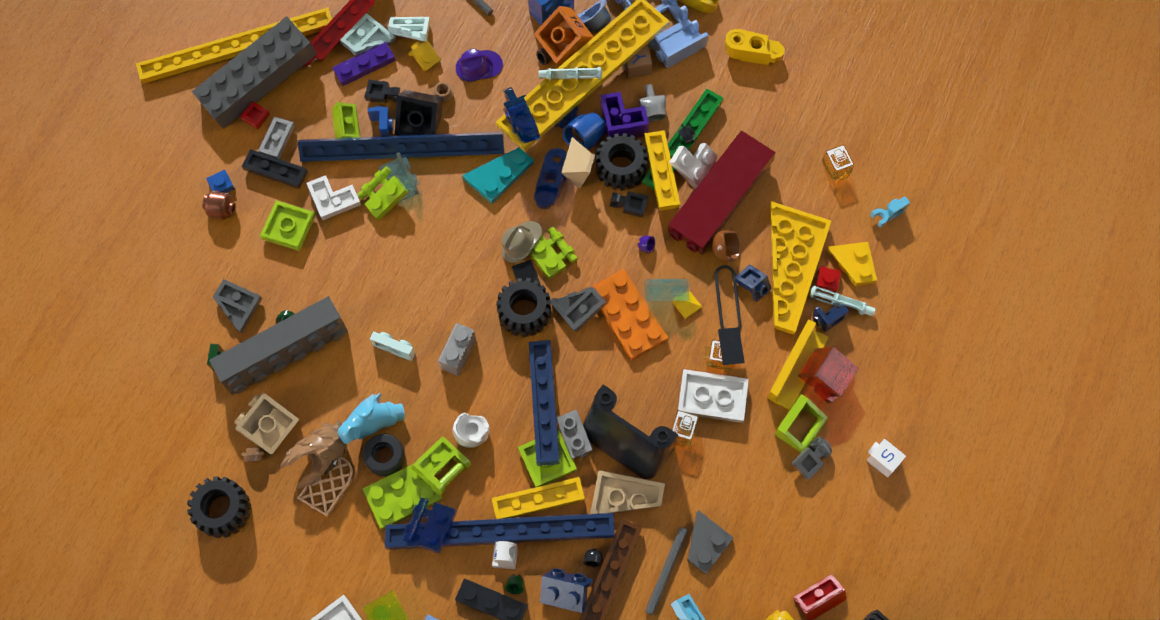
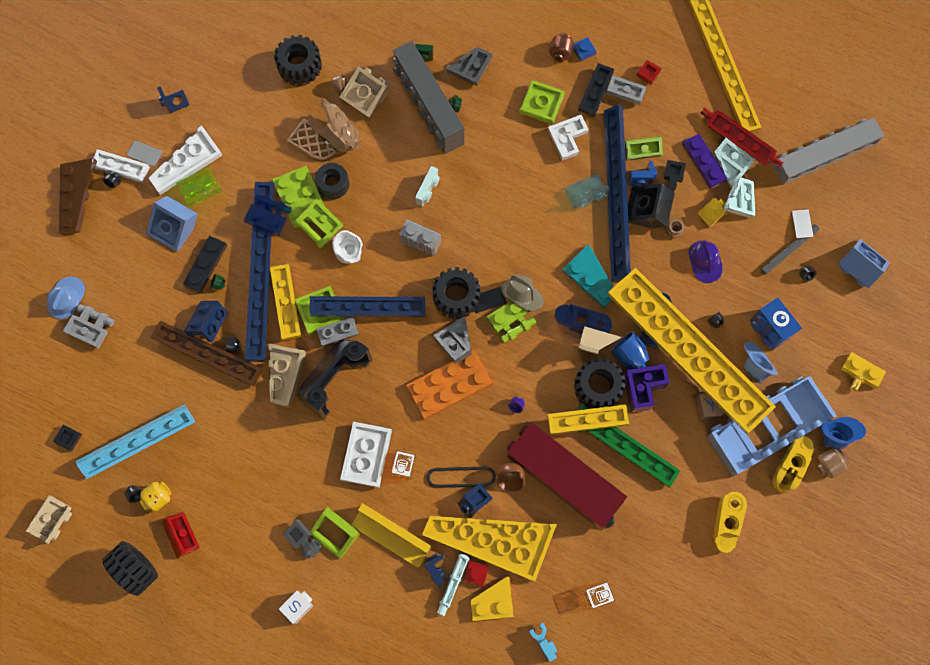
camera: 90 degrees right, 5 degrees up
(254, 72) = (689, 68): dark grey brick -> none
(370, 418) = (360, 166): medium azure animal -> none
(386, 197) = (567, 180): lime plate -> none
(505, 555) = (238, 273): white leg -> none
(520, 117) = (637, 286): clear blue piece -> none
(563, 34) = (733, 333): orange brick -> none
(571, 73) = (685, 336): light aqua piece -> none
(633, 204) = (557, 393): black plate -> none
(653, 104) = (662, 418): light grey piece -> none
(666, 570) = (216, 405): dark grey bar -> none
(667, 289) = (469, 418): clear light blue bracket -> none
(685, 427) = (337, 425): clear yellow brick -> none
(687, 134) = (625, 445): black plate -> none
(687, 307) = (456, 438): yellow slope -> none
(694, 167) = (593, 455): white plate -> none
(707, 543) = (236, 440): dark grey wing -> none
(731, 346) = (408, 471): black sticker -> none
(828, 373) = (379, 561): clear red plate -> none

